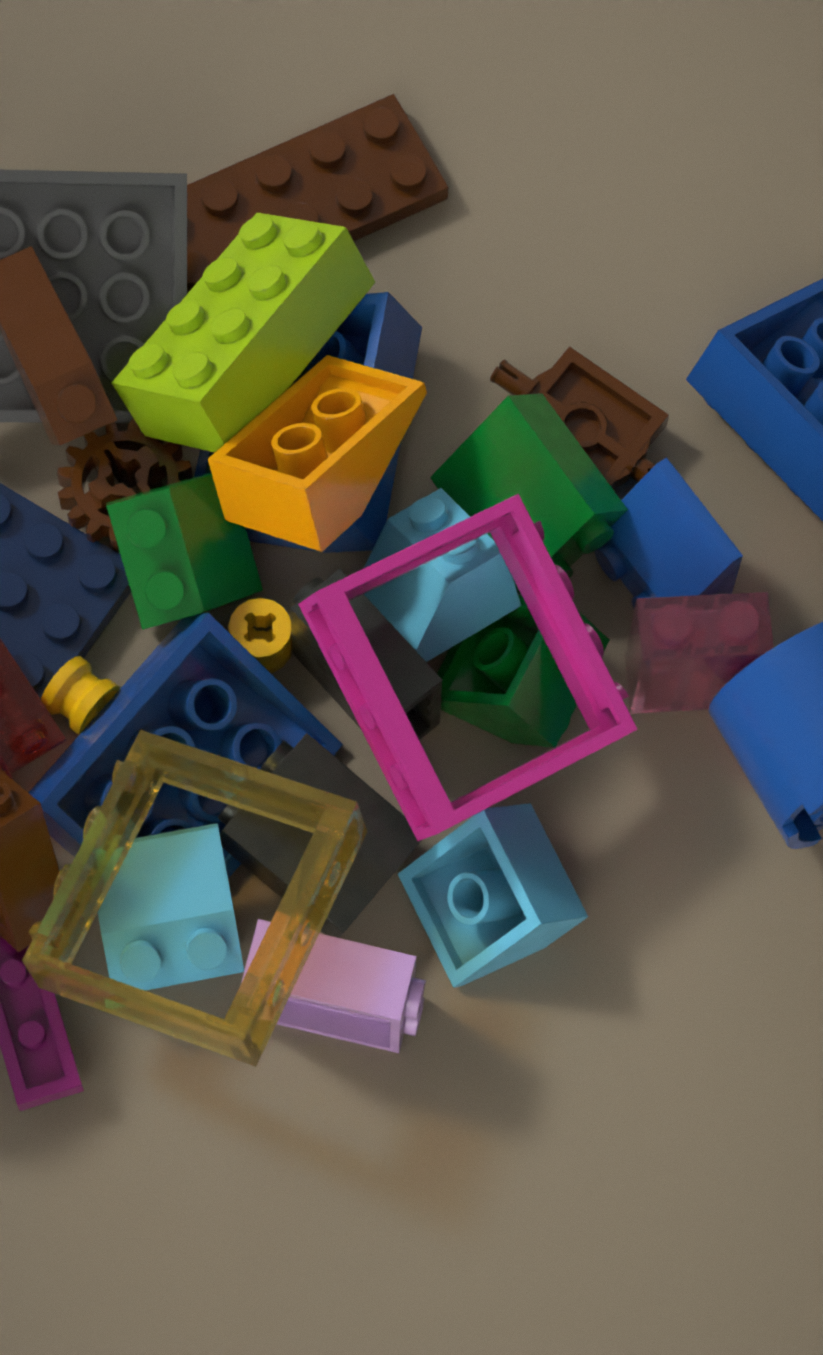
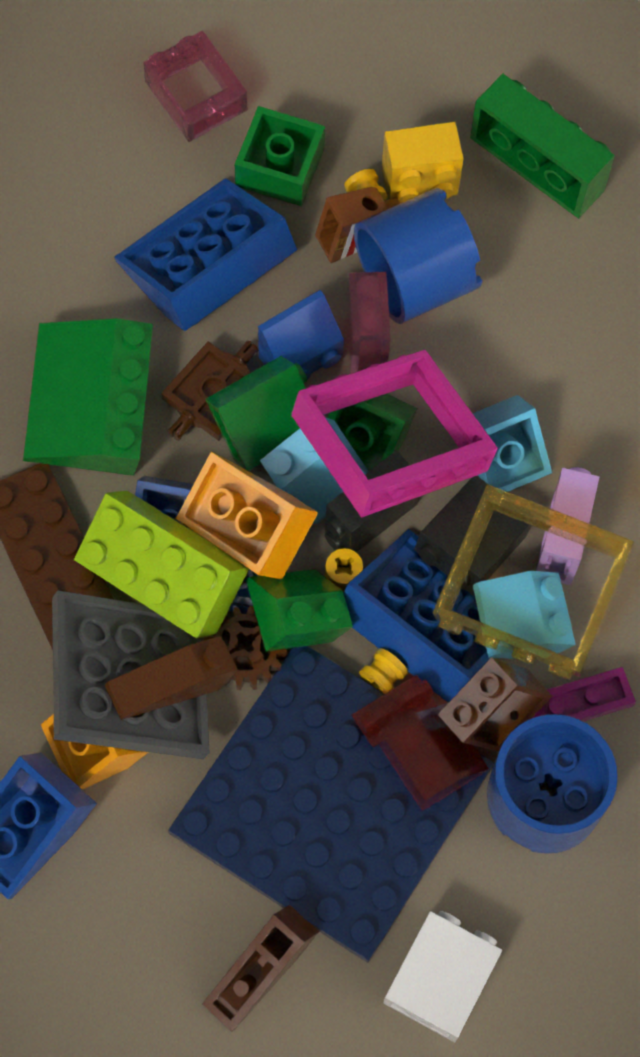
camera: 90 degrees left, 0 degrees up
(560, 241) = (89, 394): none -> green slope

